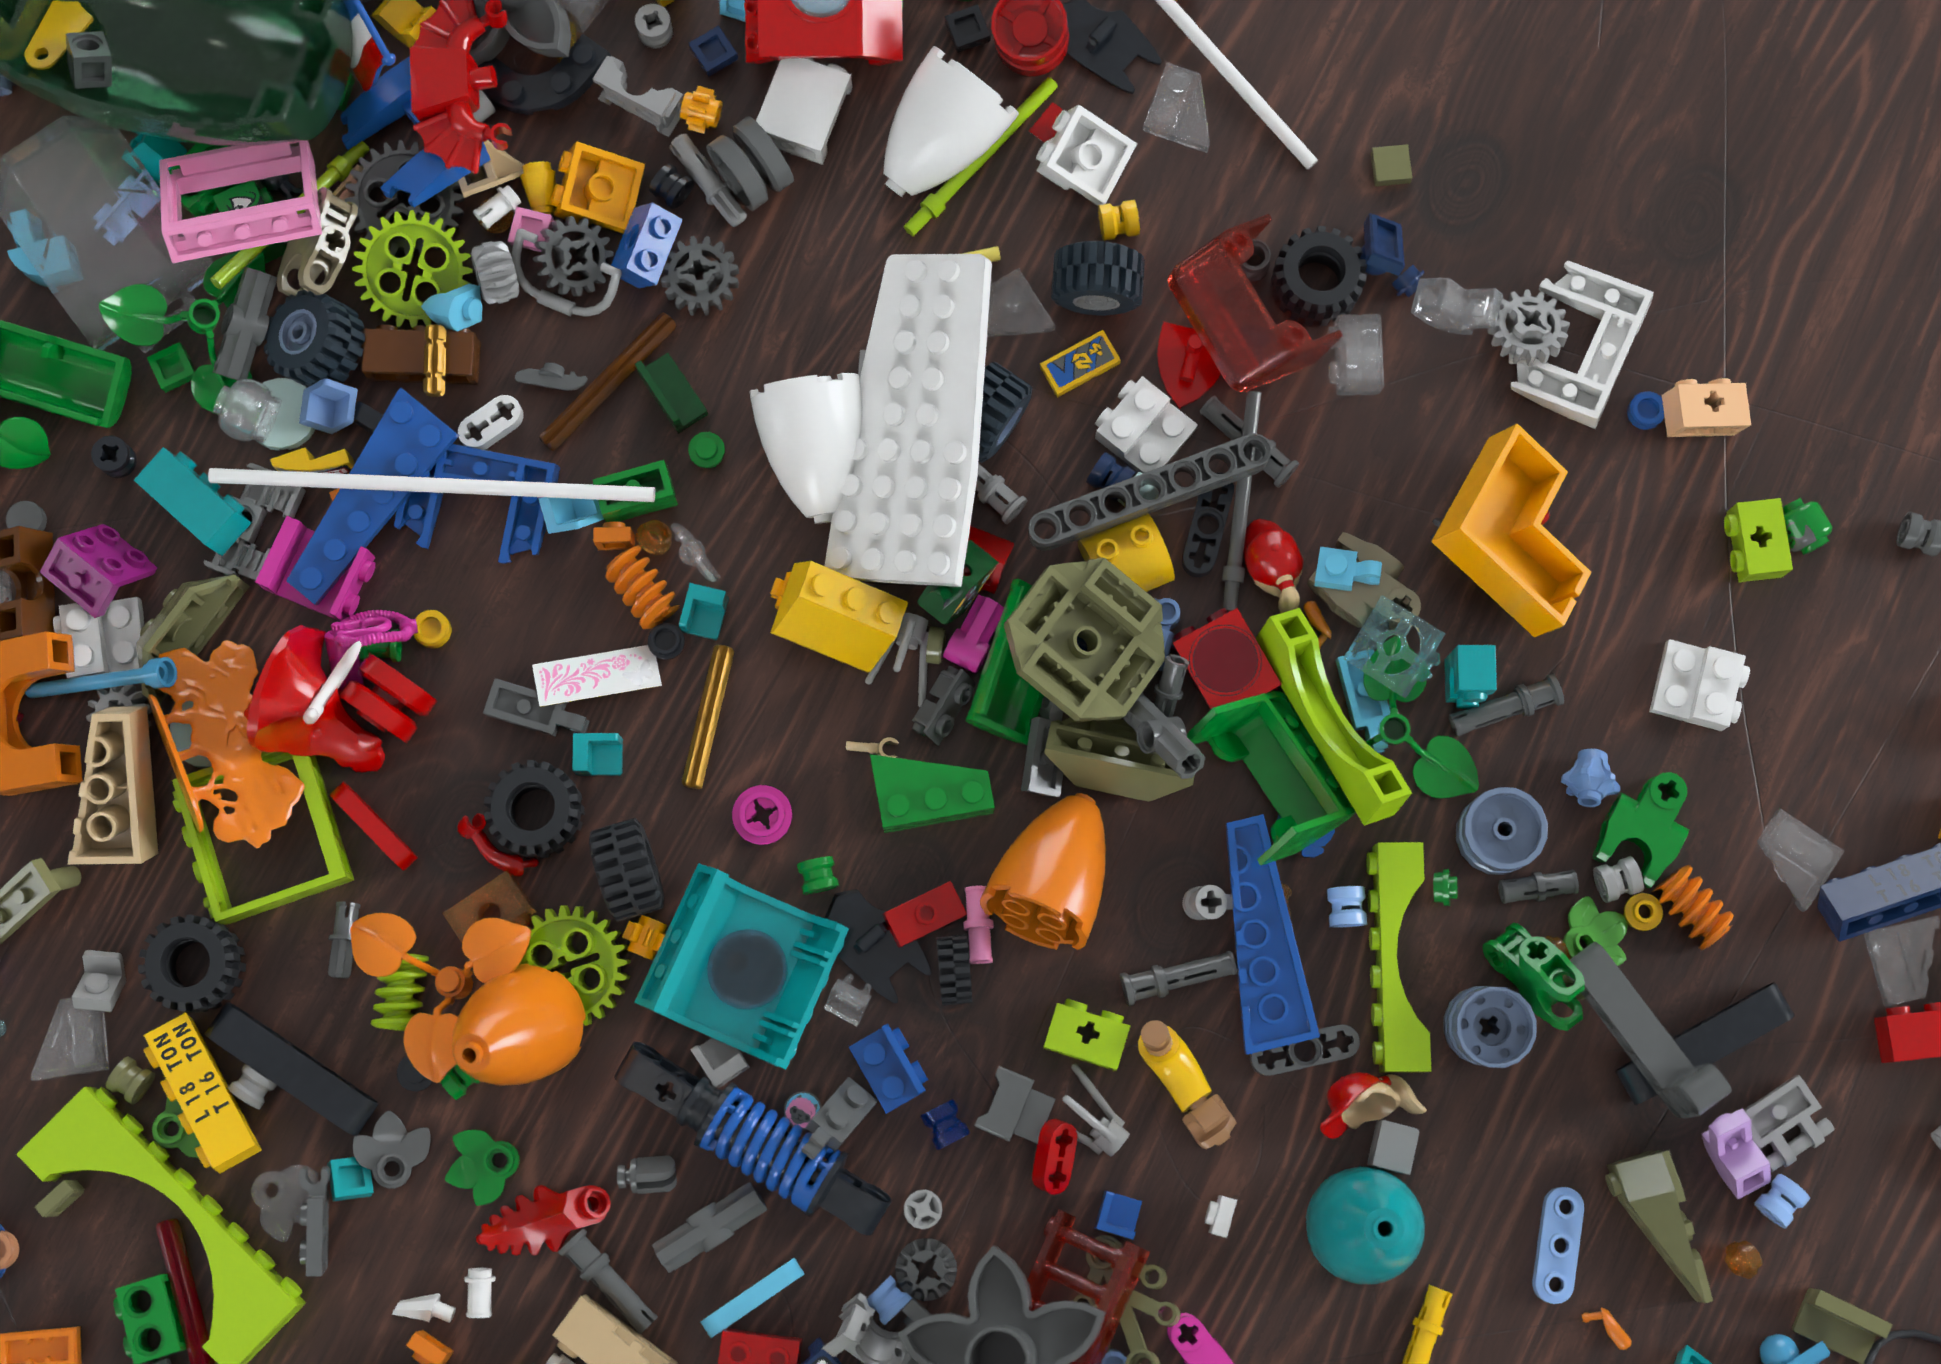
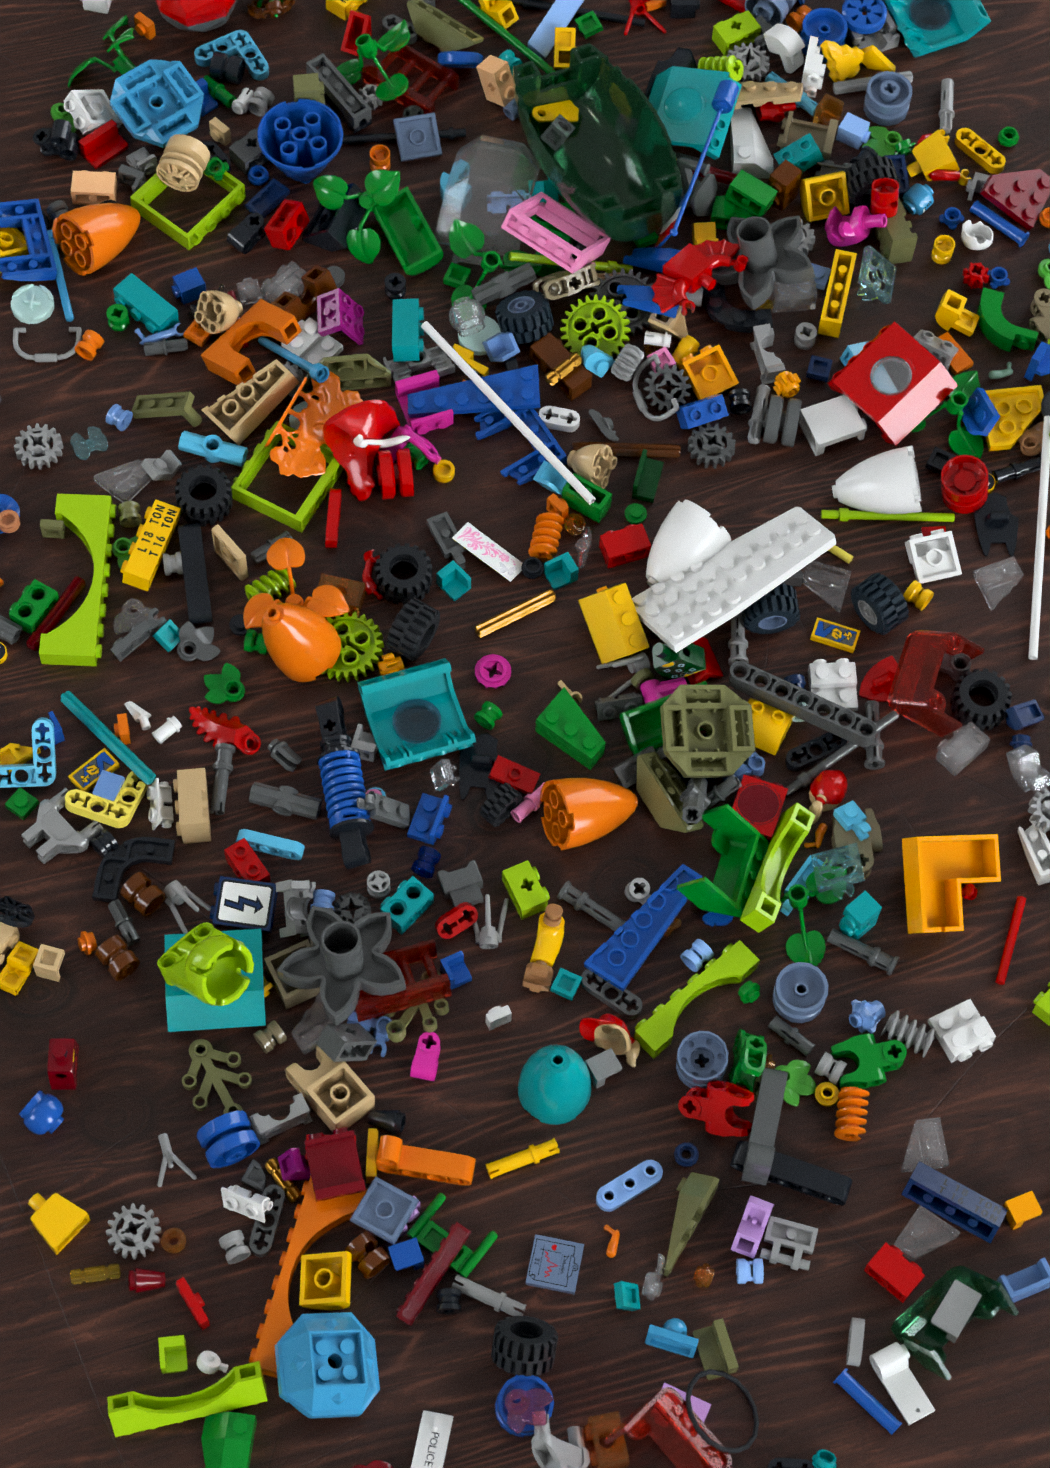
camera: 45 degrees right, 15 degrees down
(113, 903) = (201, 446): none -> medium azure piece
(307, 1002) = (229, 552): none -> tan plate
(595, 442) = (593, 463): none -> tan piece
(739, 502) = (624, 545): none -> red brick
(990, 1198) = (411, 908): none -> teal brick
(1248, 1095) = (566, 984): none -> teal plate
(1564, 1061) = (716, 1107): none -> red piece
(1589, 1140) = (686, 1147): none -> dark blue plate
(1636, 524) = (1010, 940): none -> red bar
(1652, 747) = (909, 1032): none -> light grey piece
(1705, 1327) = (652, 1286): none -> clear plate

